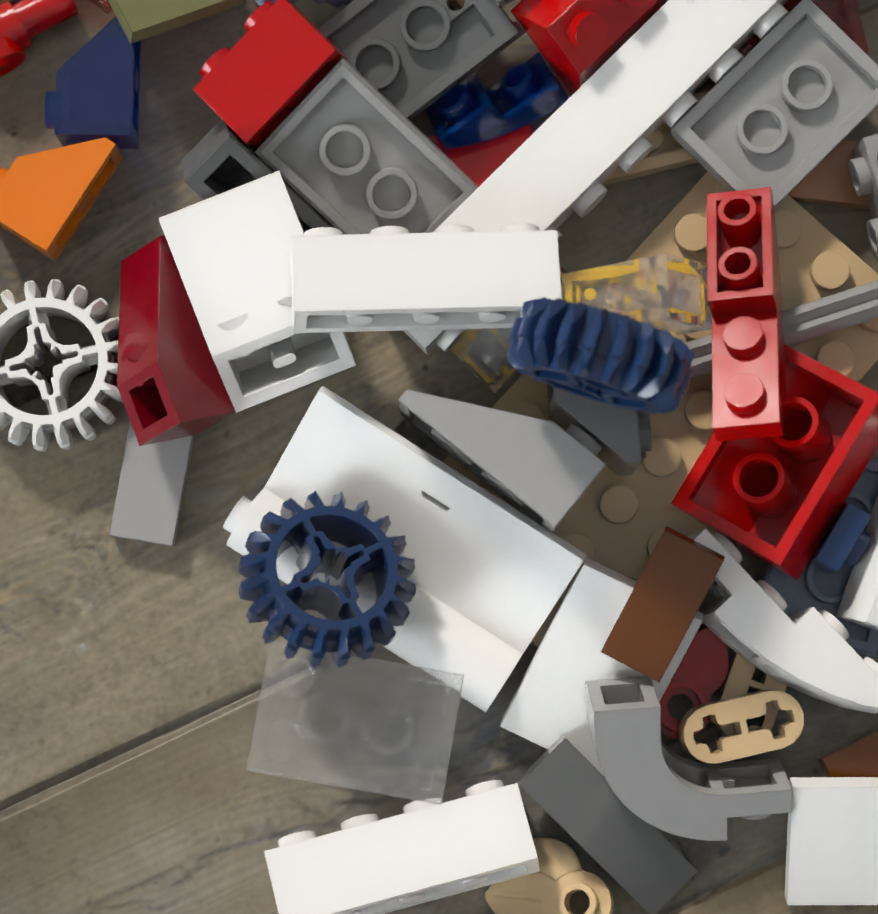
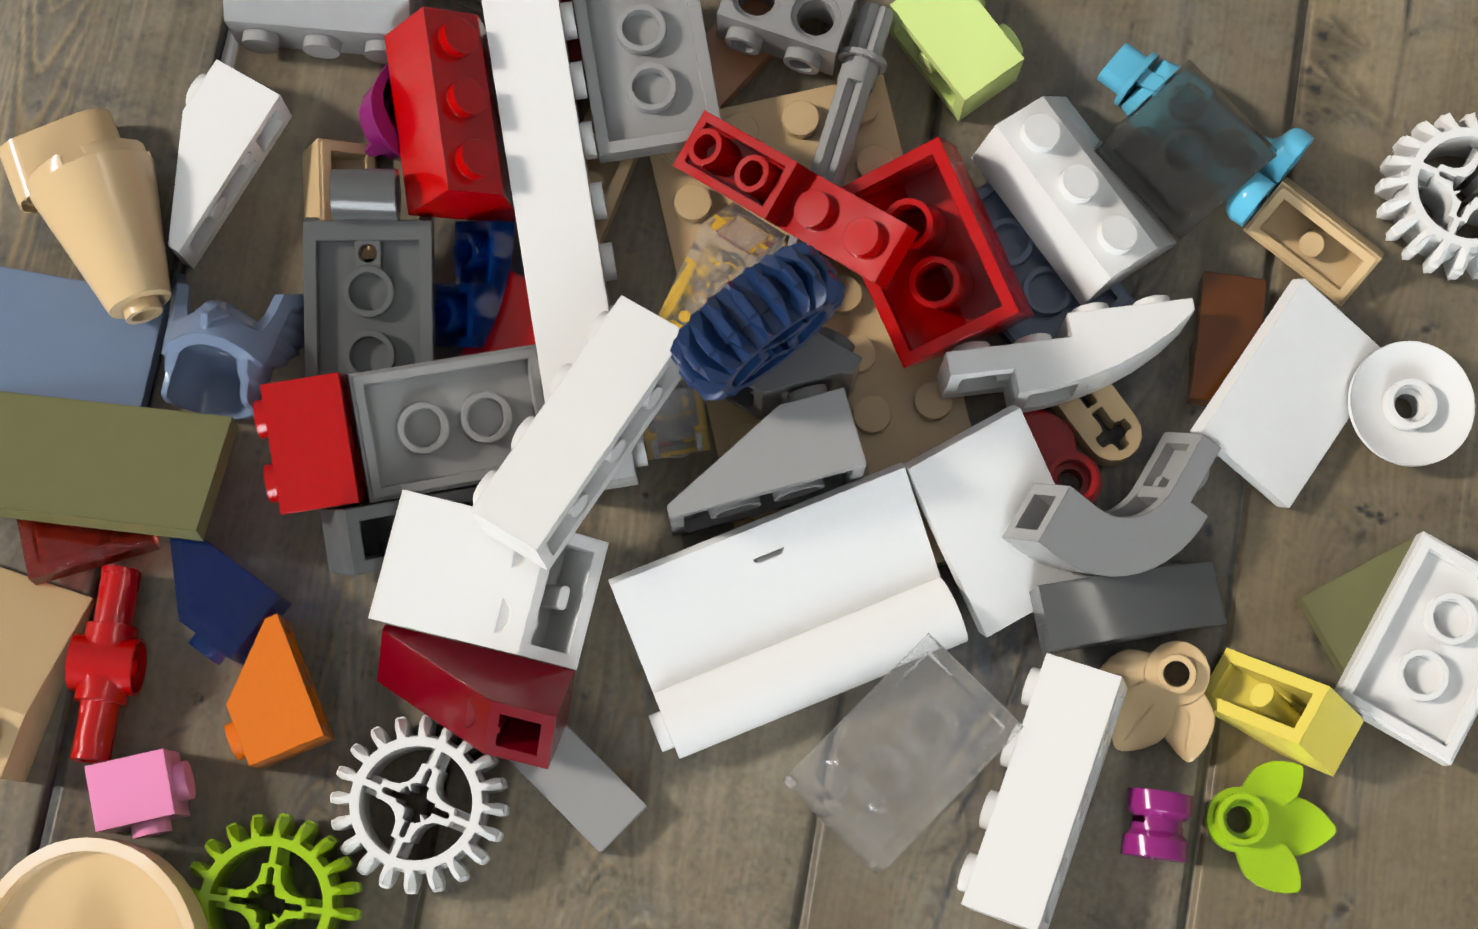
camera: 55 degrees left, 5 degrees down
(310, 534) = (727, 674): dark blue gear -> none
(663, 604) = (985, 428): reddish brown slope -> none
(744, 741) = (1135, 446): tan beam -> none
(843, 541) = (1028, 255): dark blue plate -> none

